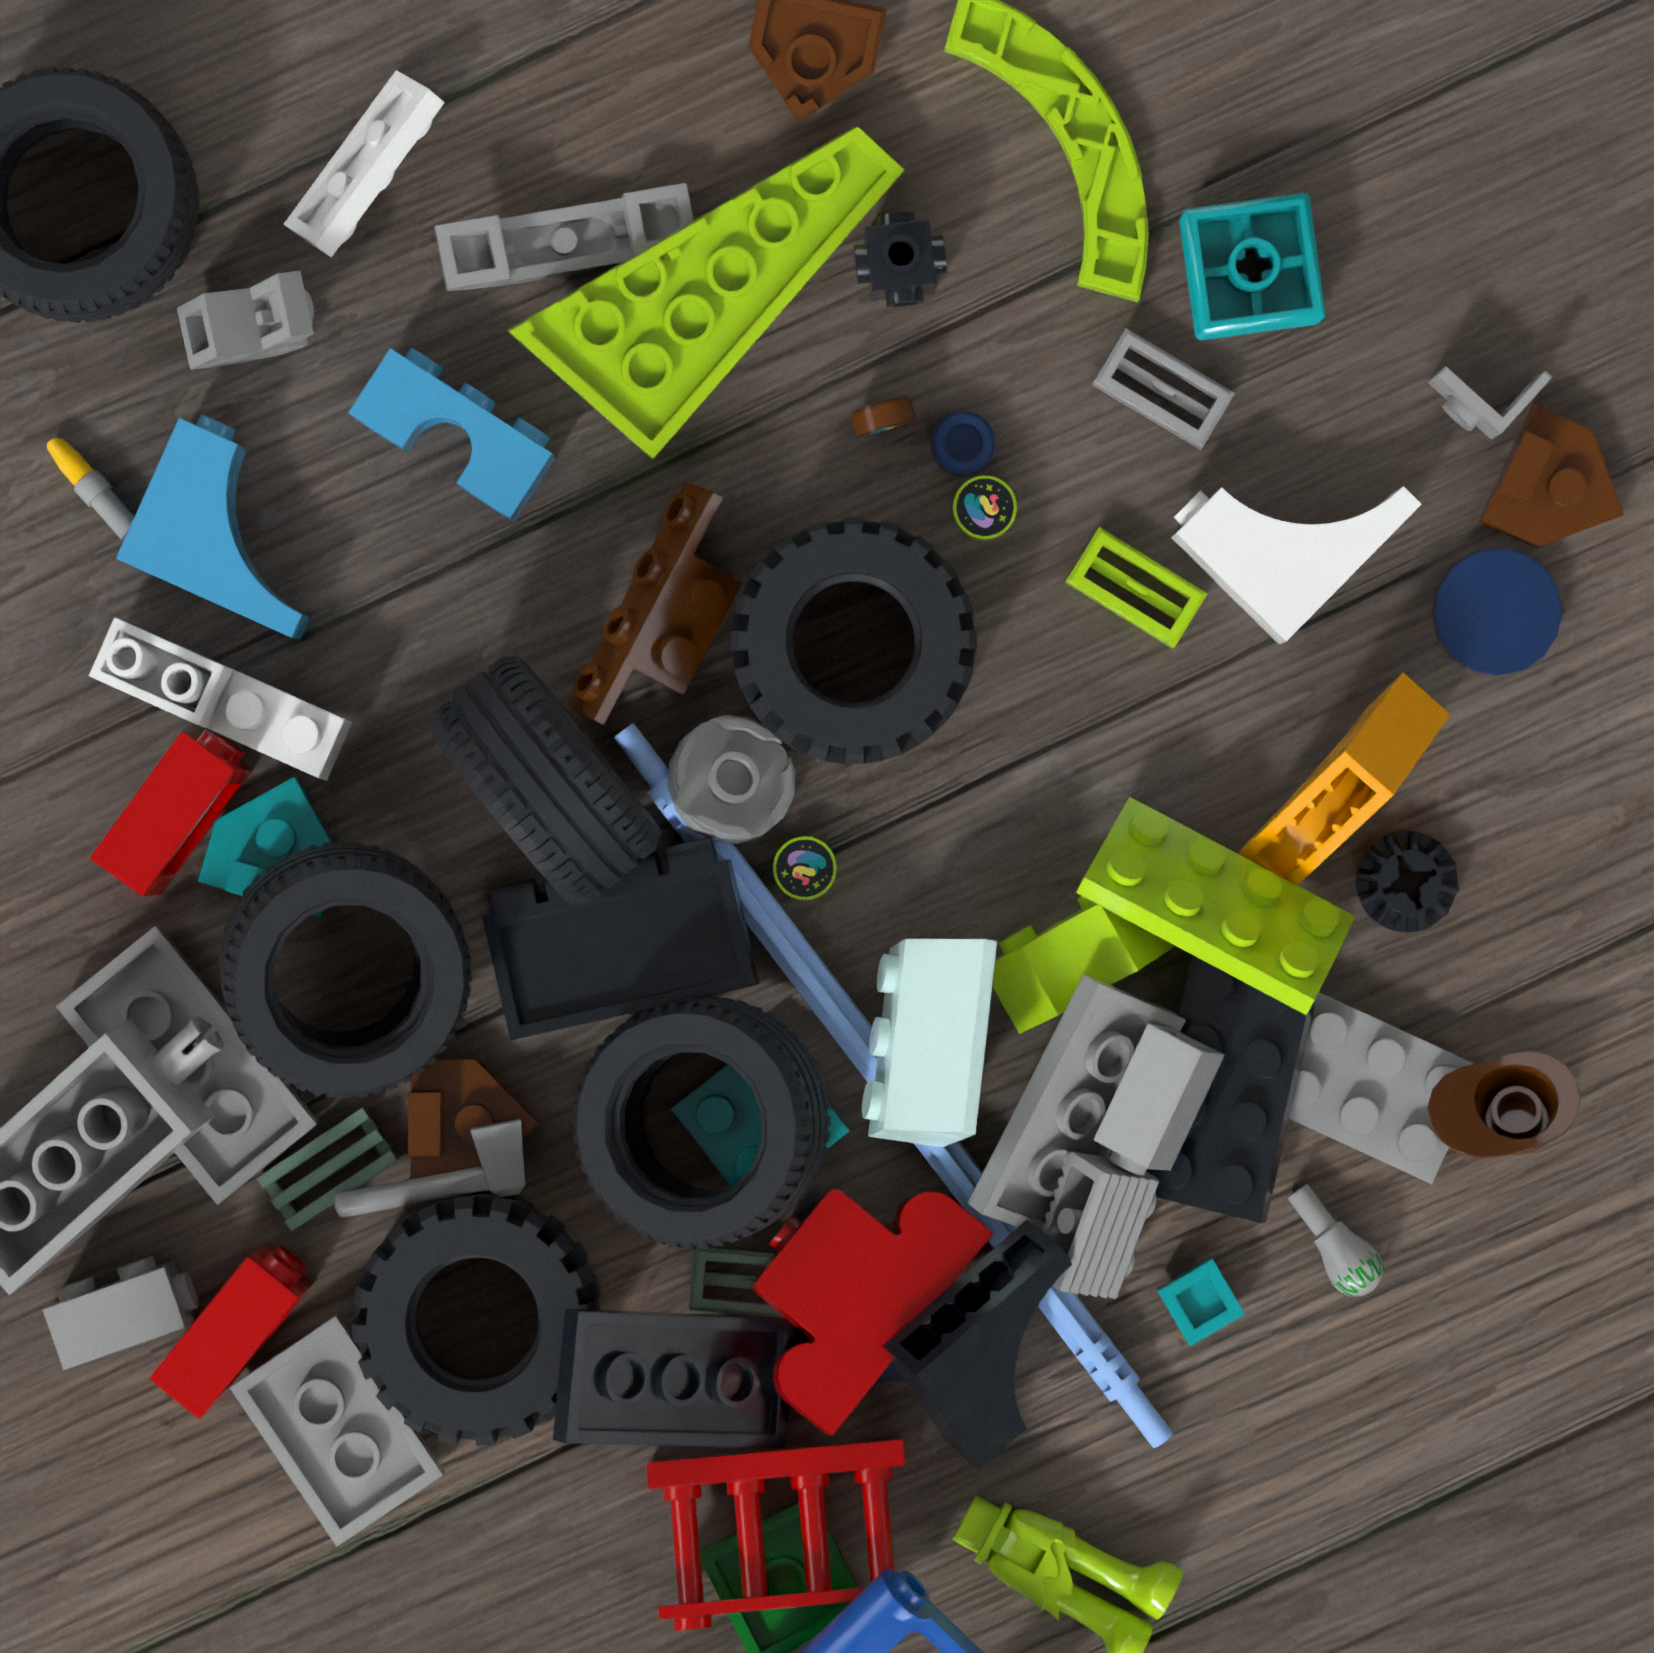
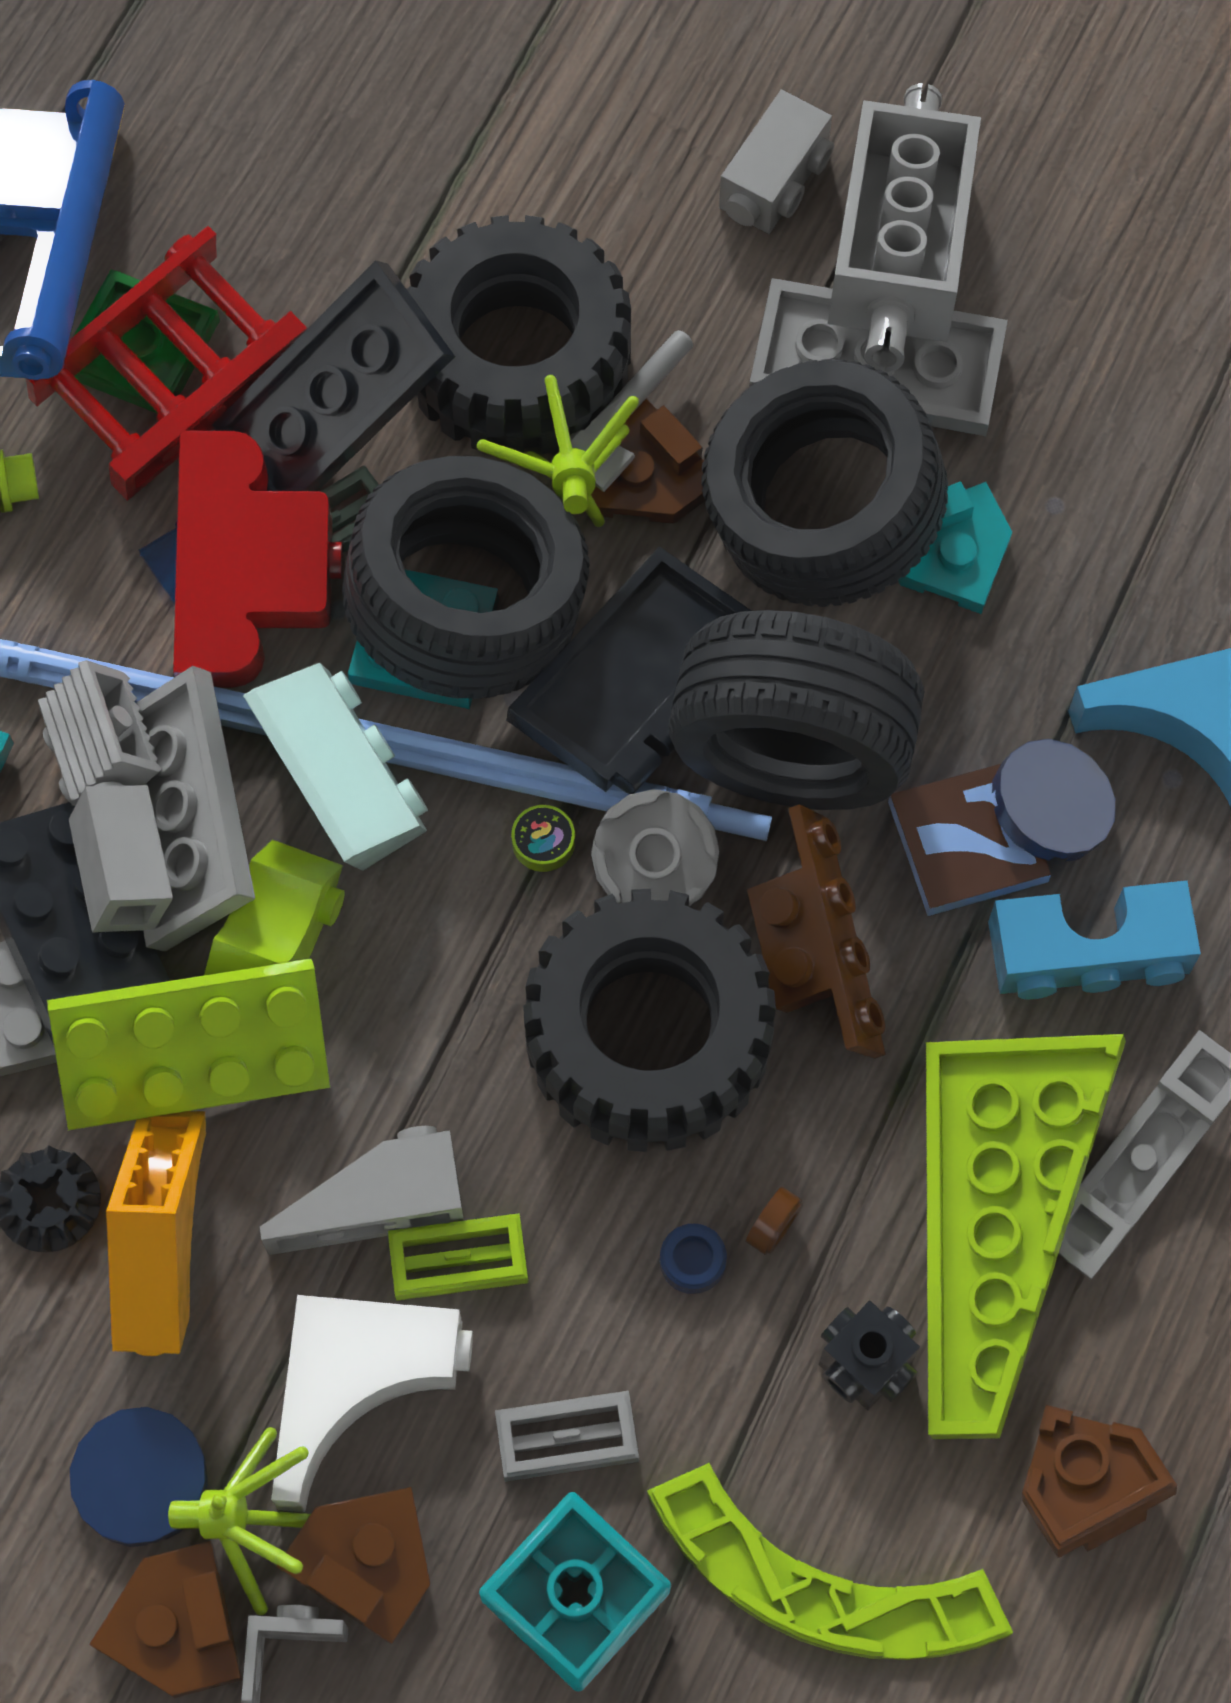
camera: 135 degrees right, 20 degrees down
(172, 812) = (1048, 498): red window -> none
(220, 699) = (1090, 617): white slope -> none
(233, 1328) = (686, 197): red window -> none
(282, 1198) = (727, 326): sand green tile -> none
(334, 1433) = (562, 185): light grey plate -> none
(385, 568) = (1053, 800): none -> tile
(473, 595) = (958, 845): none -> reddish brown tile
(544, 1143) = (571, 468): none -> lime plant
(967, 1343) = (130, 570): black arch -> none
(984, 508) = (633, 1220): tile -> none
(1150, 674) = (387, 1189): none -> light grey slope
(1383, 416) = (365, 1559): none -> reddish brown plate
(1458, 526) = (226, 1515): none -> lime plant

